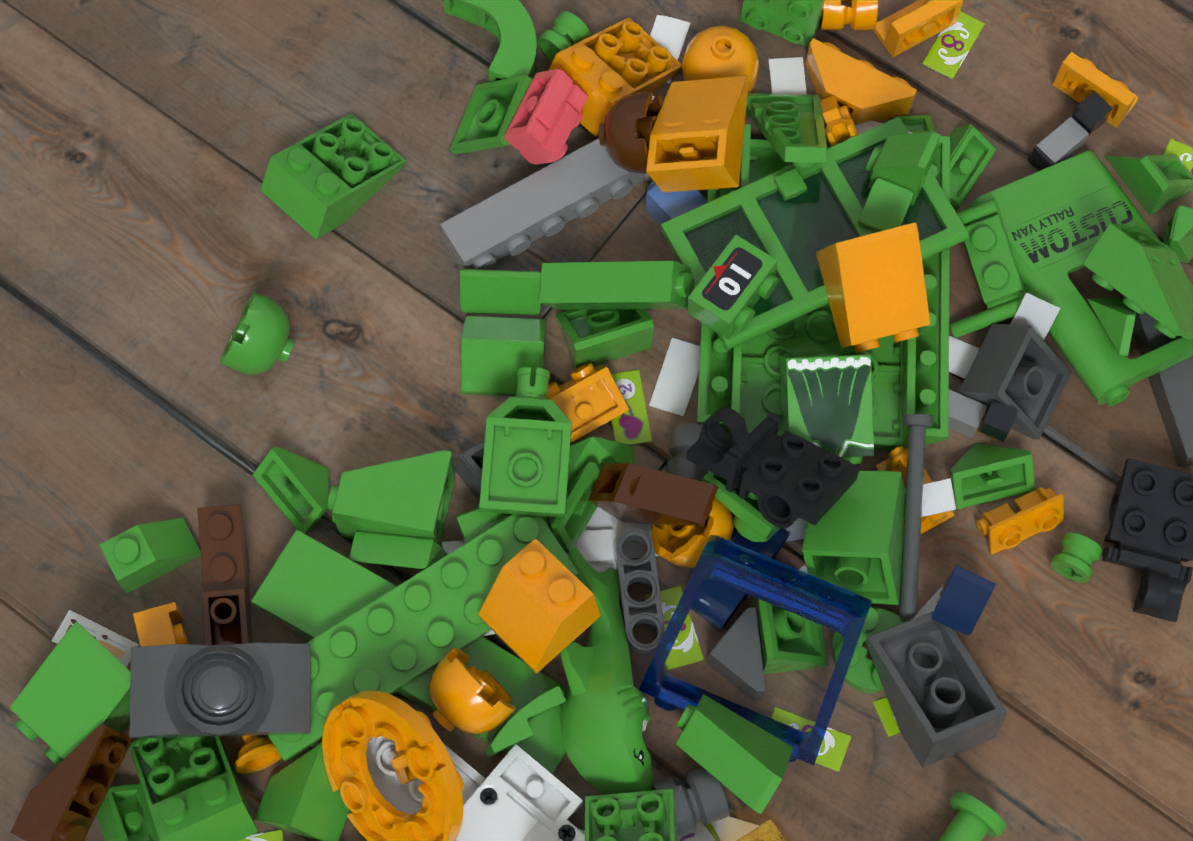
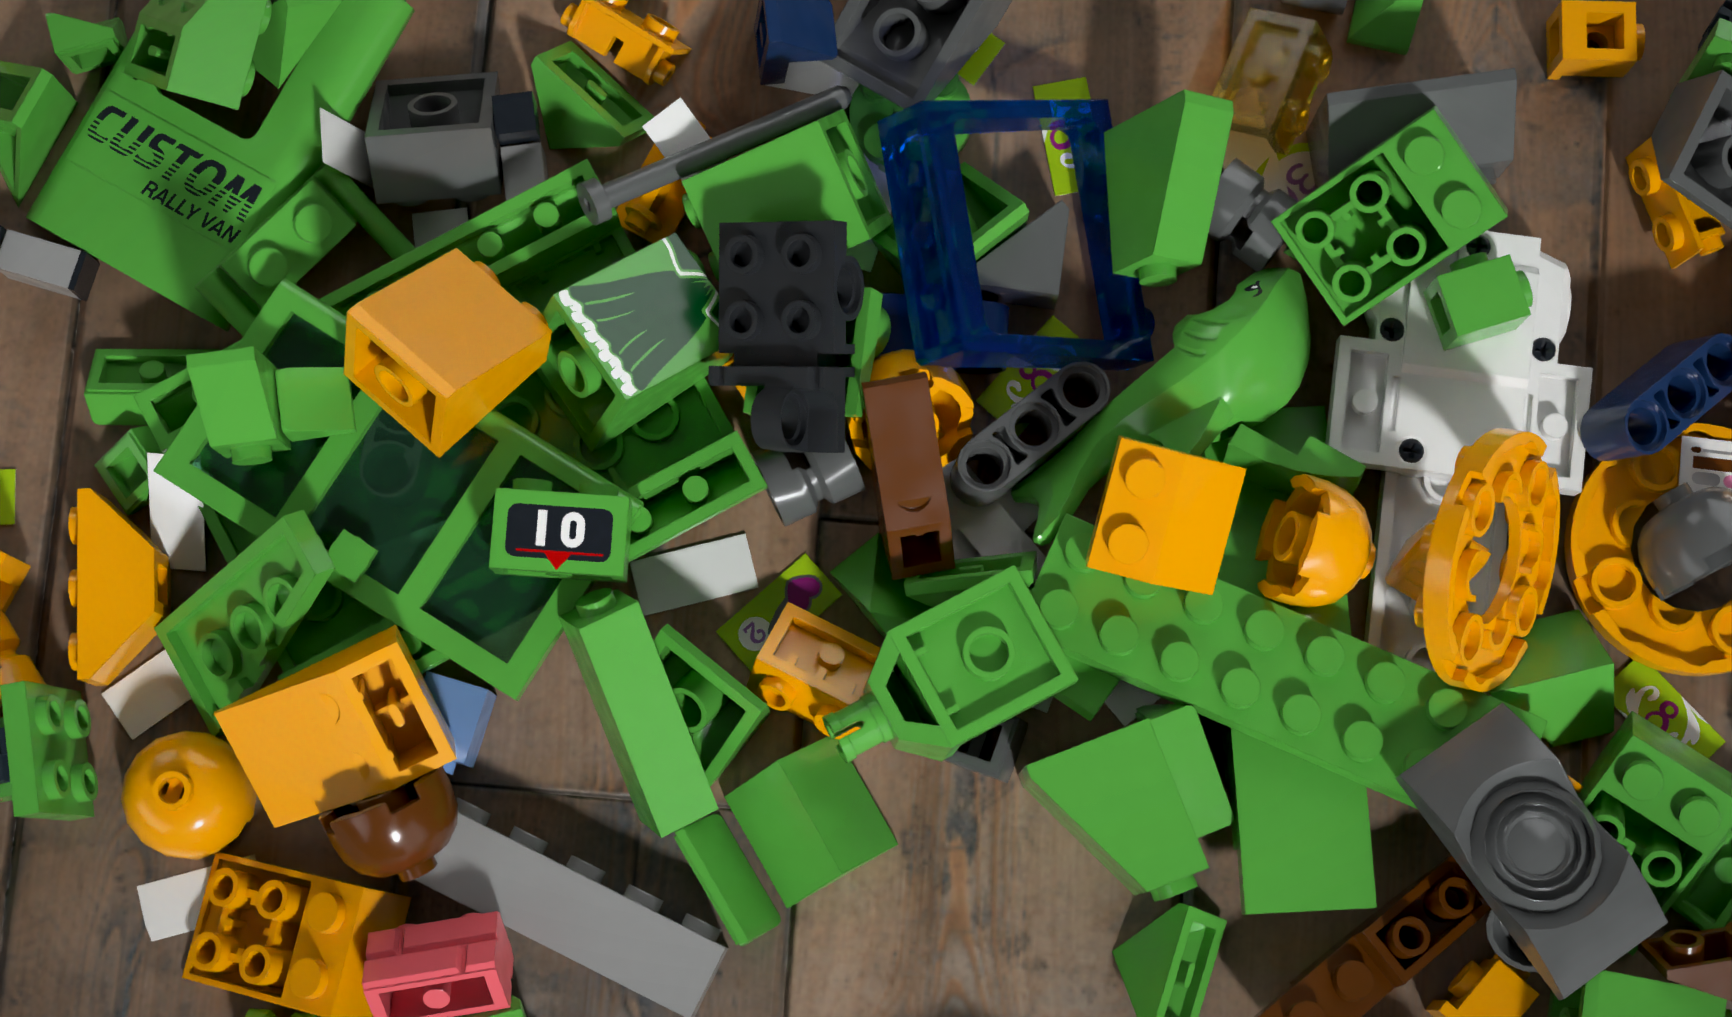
camera: 120 degrees left, 10 degrees up
(838, 121) = (198, 562): light orange plate -> none

